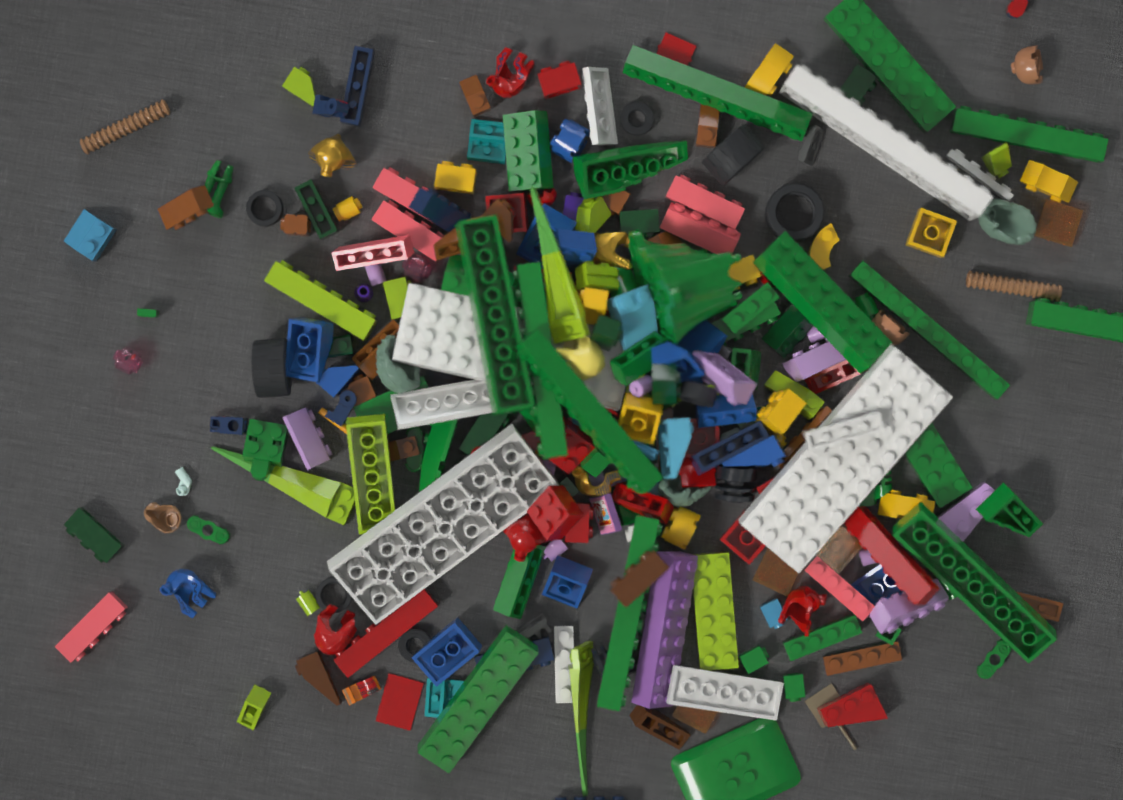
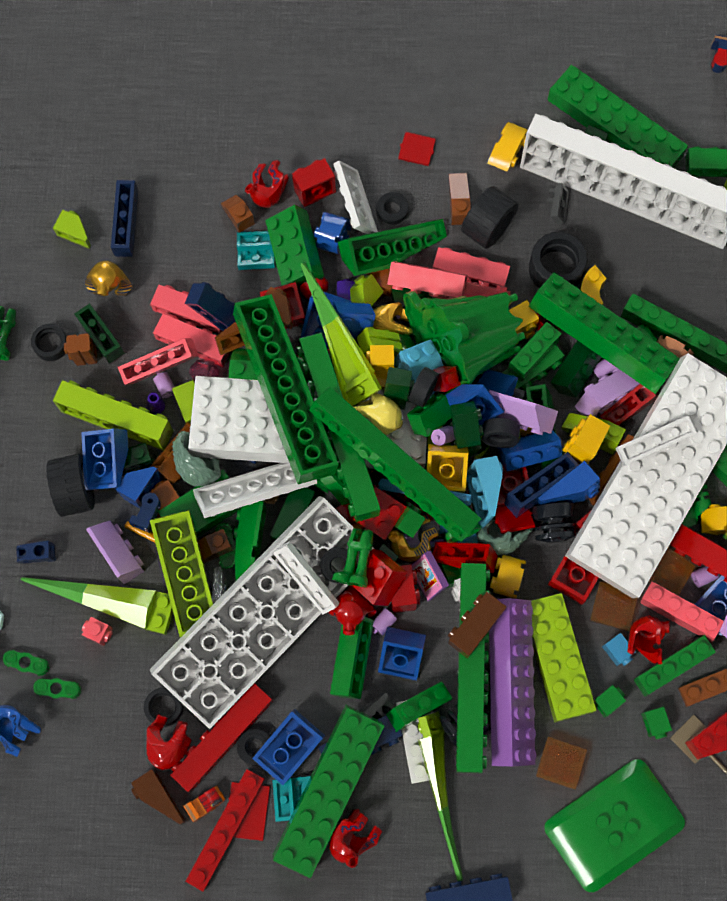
camera: 15 degrees left, 15 degrees down
(246, 563) = (69, 689): none -> green piece
(254, 707) = (92, 842): lime slope -> none
(264, 448) = (73, 566): green brick -> none
(280, 513) = (97, 631): none -> coral brick
(307, 602) = (137, 720): lime piece -> none
(330, 107) = (102, 237): dark blue leg -> none
(347, 208) = (129, 330): yellow brick -> none
(377, 715) = (225, 830): none -> red plate
(402, 490) = (219, 584): none -> clear tile
(455, 178) = (231, 281): yellow brick -> none
(485, 747) = (345, 845): none -> red piece
(487, 504) = (306, 578): none -> white plate
(527, 503) = (328, 557): none -> black tyre
(541, 479) = (357, 542): none -> green piece
(574, 636) = (419, 706): none -> green brick
(630, 340) = (423, 387): none -> black tyre
(652, 329) = (447, 378): none -> red brick
(656, 215) = (427, 279): none -> coral brick
(659, 726) = (524, 788): reddish brown slope -> none
(717, 93) = (463, 170): green brick -> none
(724, 692) = (587, 739): white plate -> none
(931, 232) = (691, 260): yellow brick -> none

